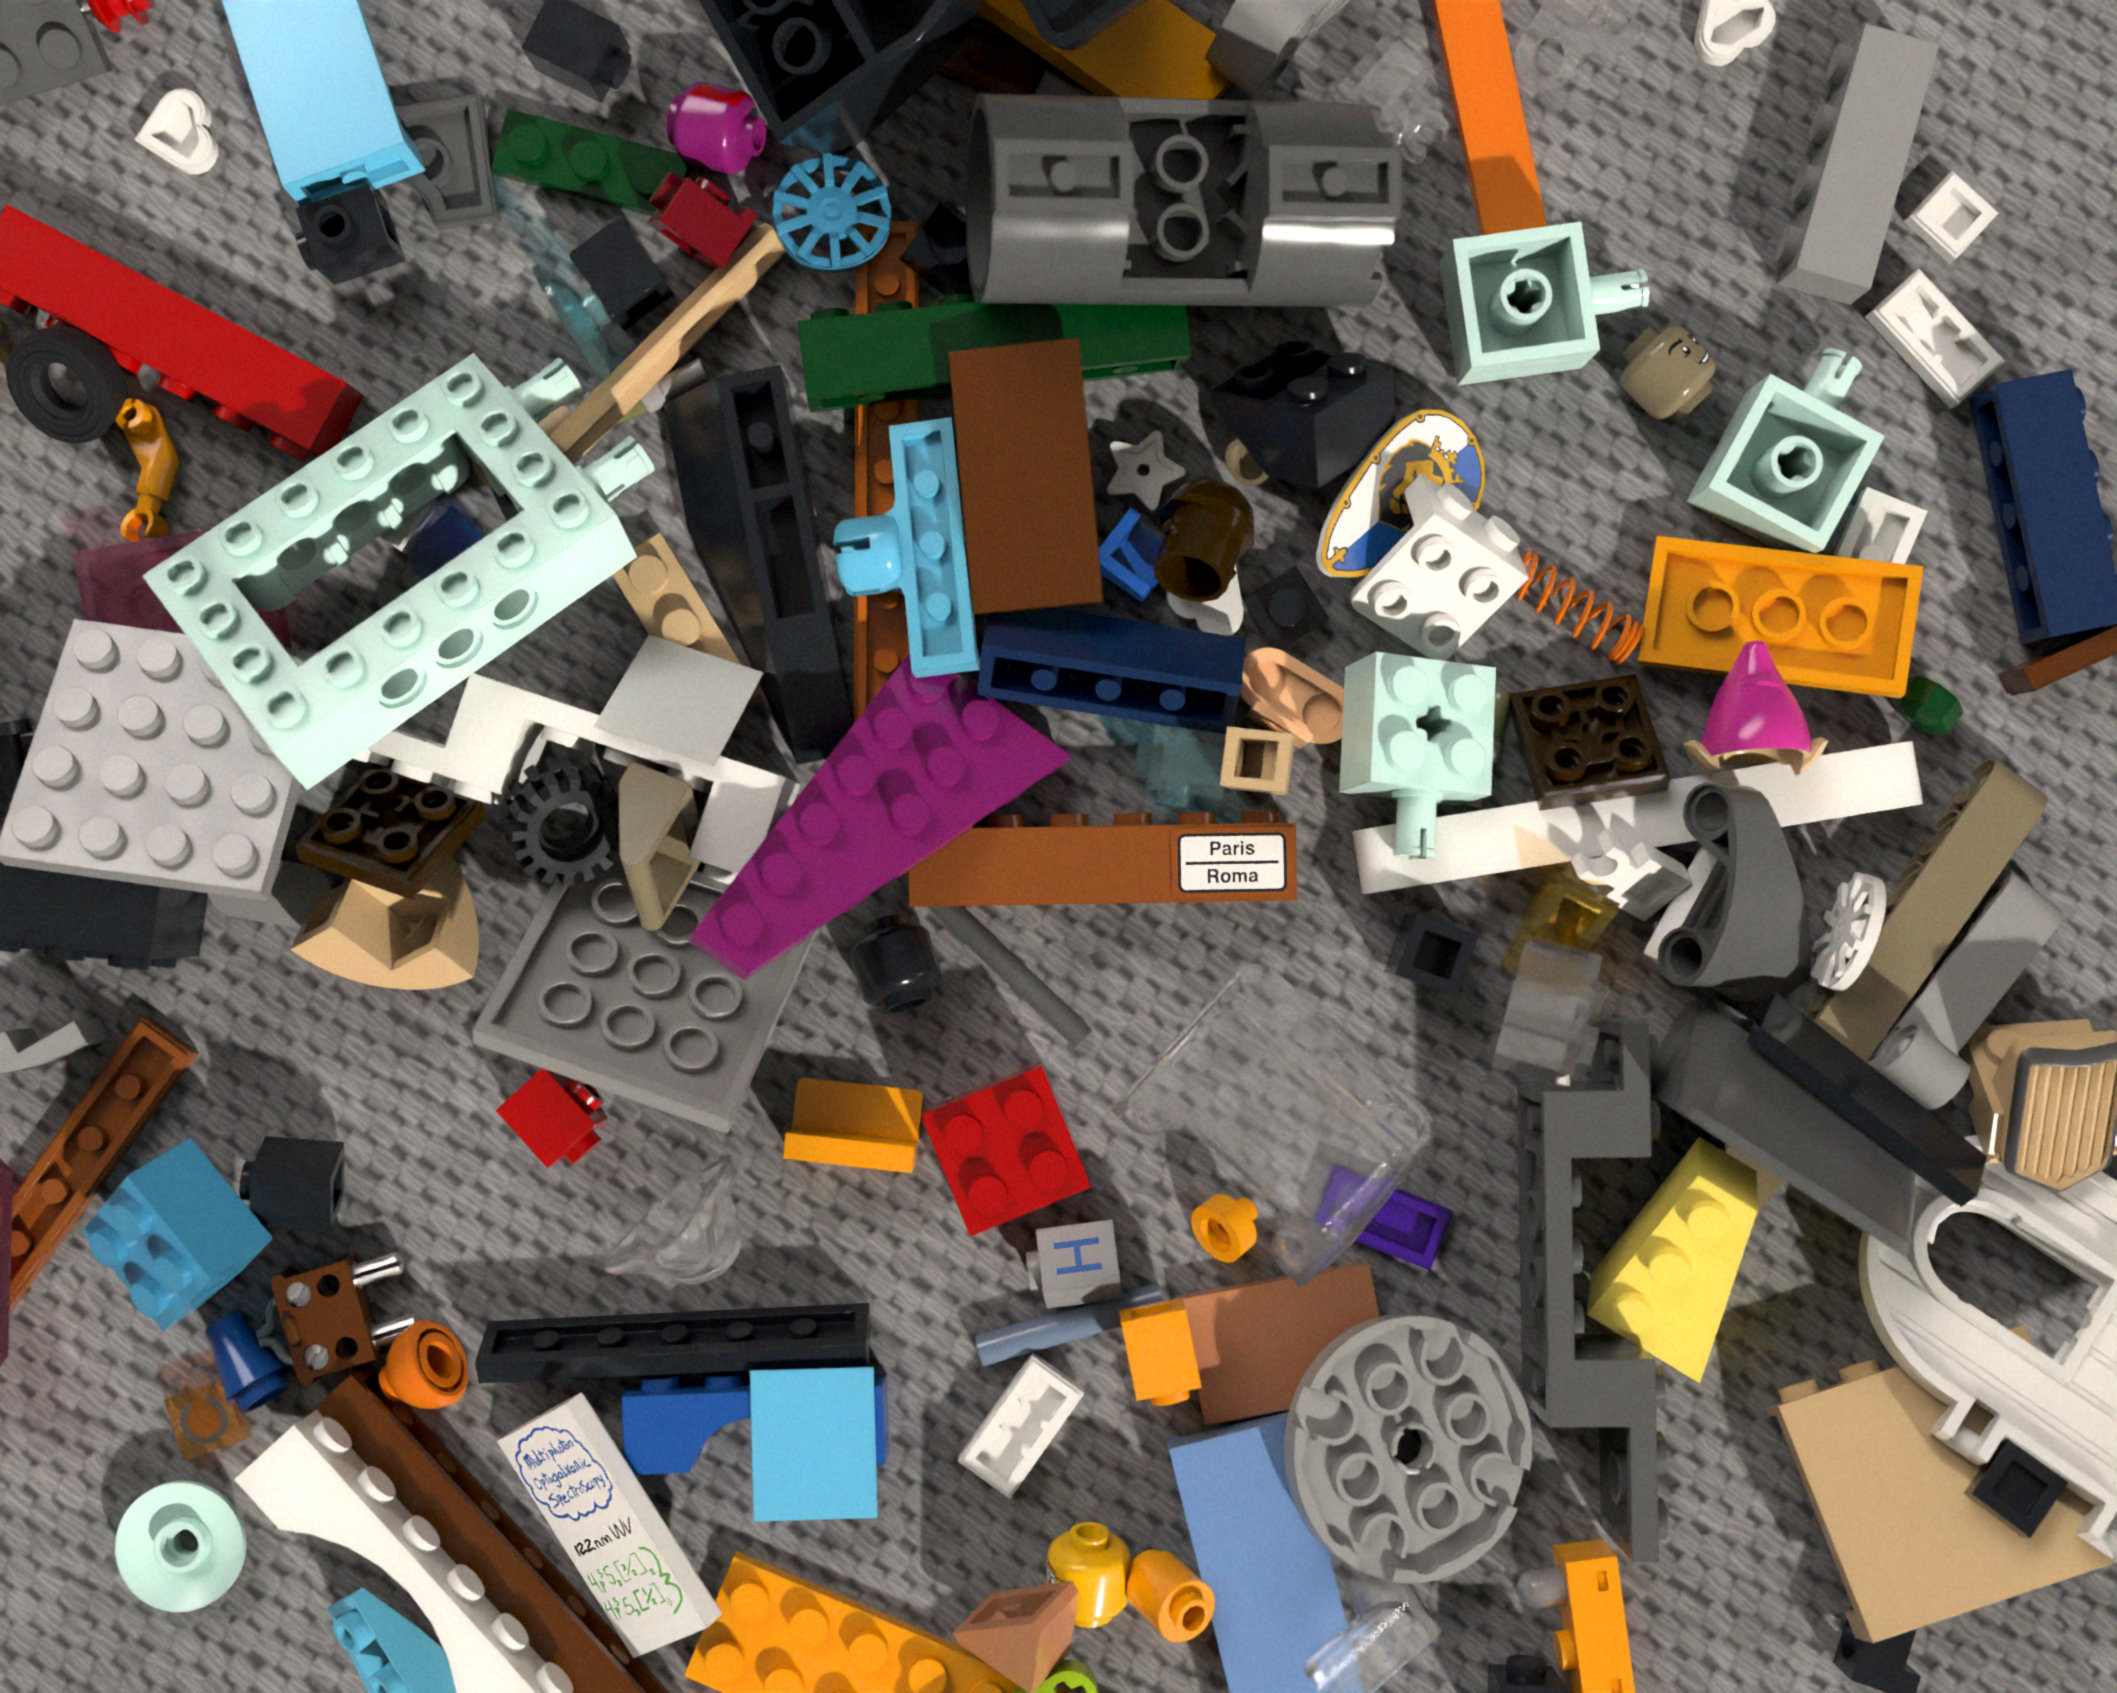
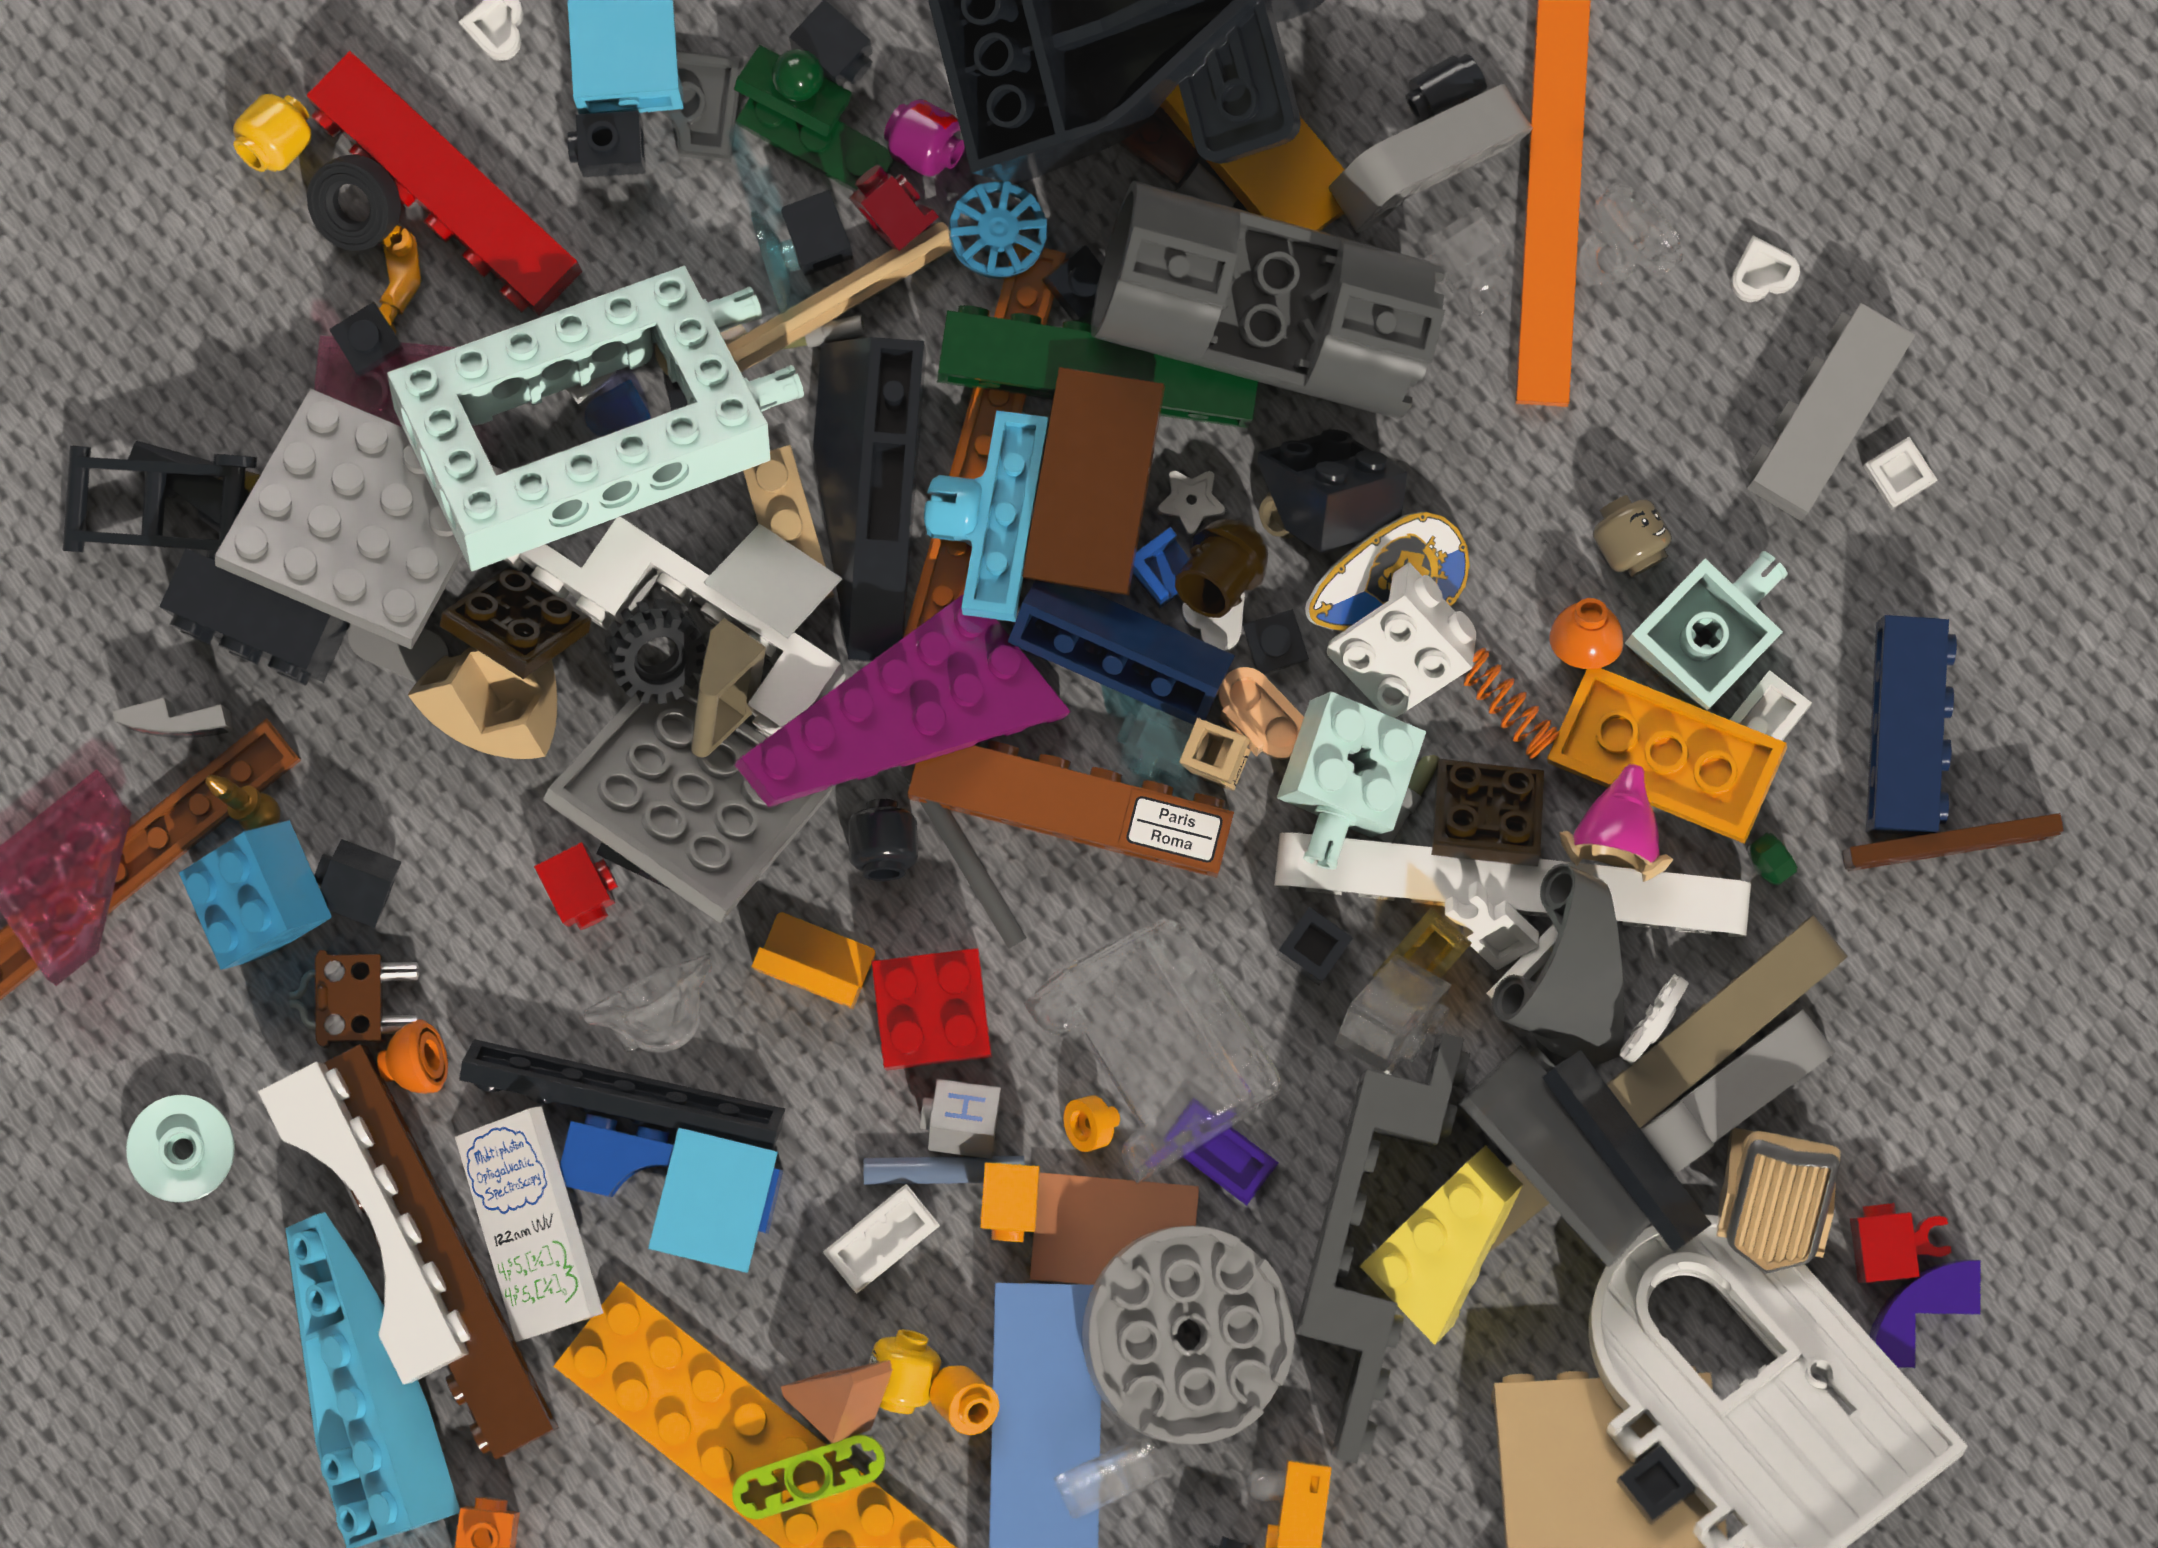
camera: 15 degrees right, 5 degrees down
(126, 542) = (366, 339): none -> black plate
(141, 1127) = (245, 803): none -> pearl gold bar
(205, 1420) = (227, 1054): clear orange tile -> none
(247, 1371) = (273, 1021): blue cone -> none
(545, 107) = (794, 87): none -> dark green tile
(1547, 275) = (1553, 430): light aqua brick -> none
(1645, 503) = (1587, 635): none -> orange brick
(1934, 339) = (1858, 567): white plate -> none

